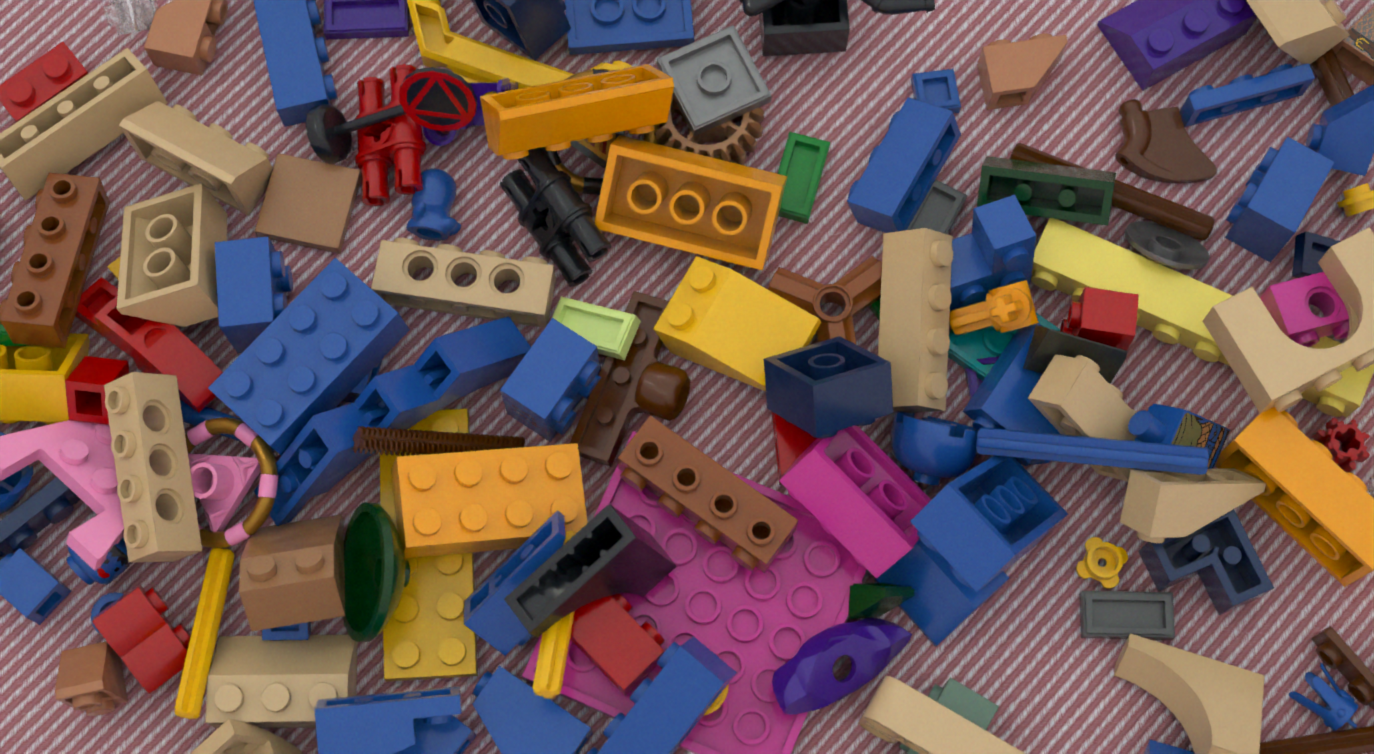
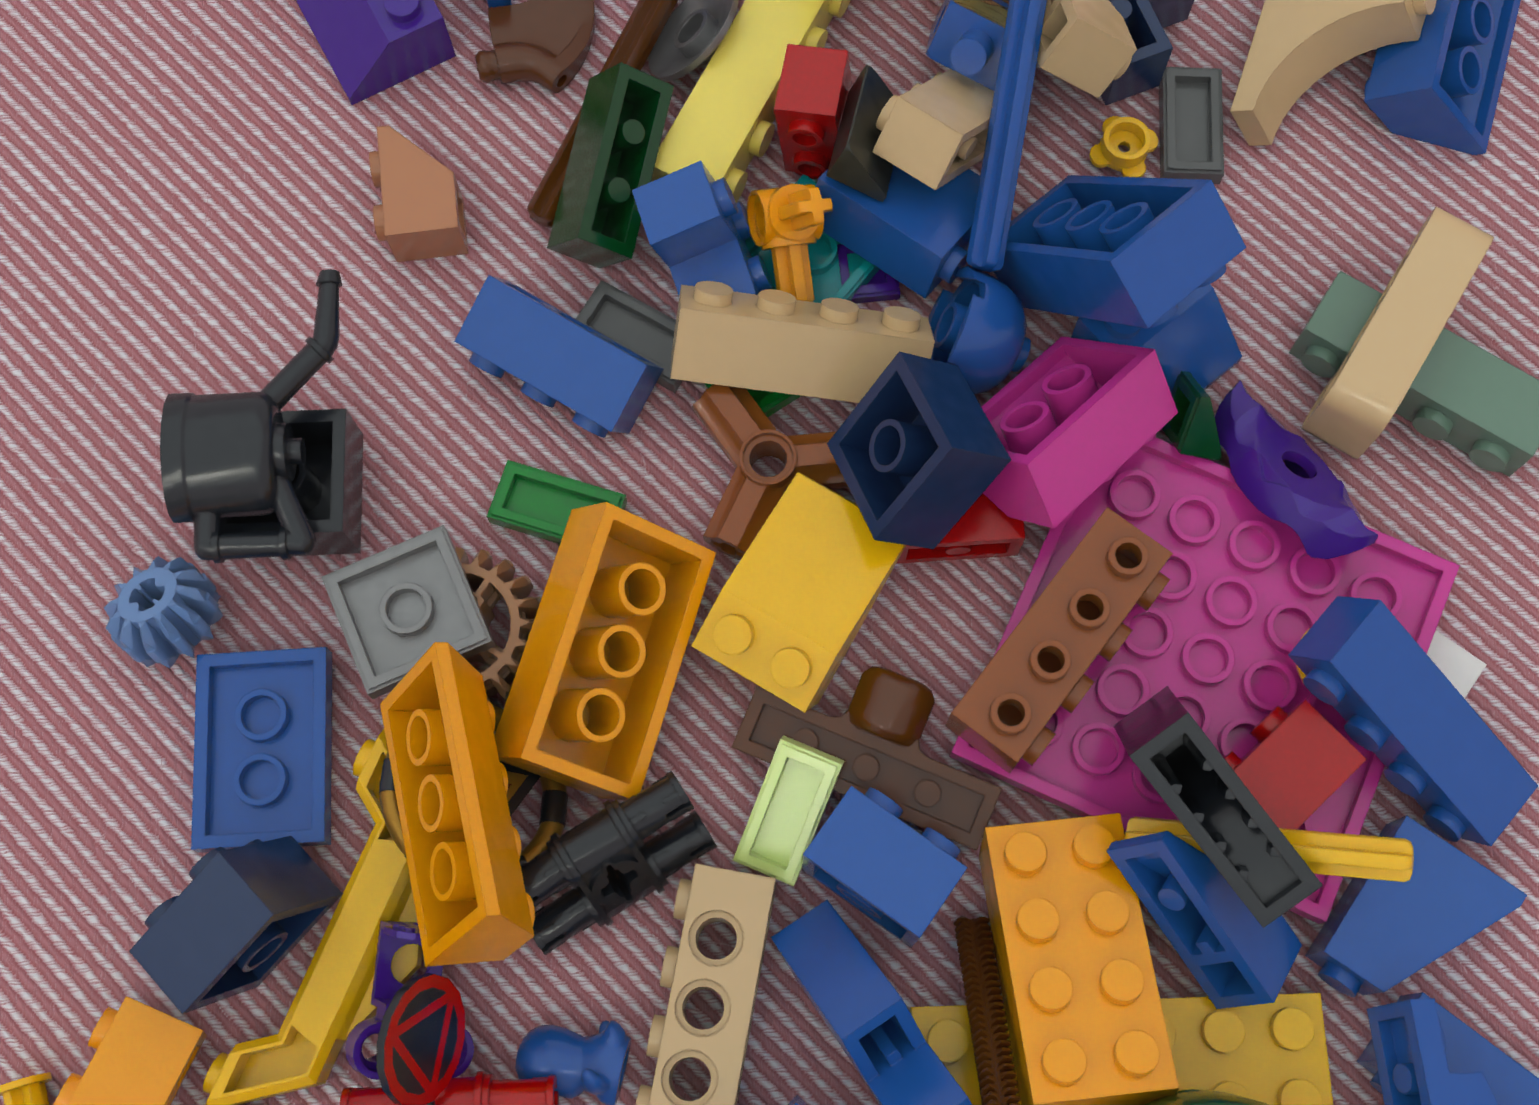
camera: 85 degrees left, 0 degrees up
(937, 89) = (436, 314): blue tile -> none

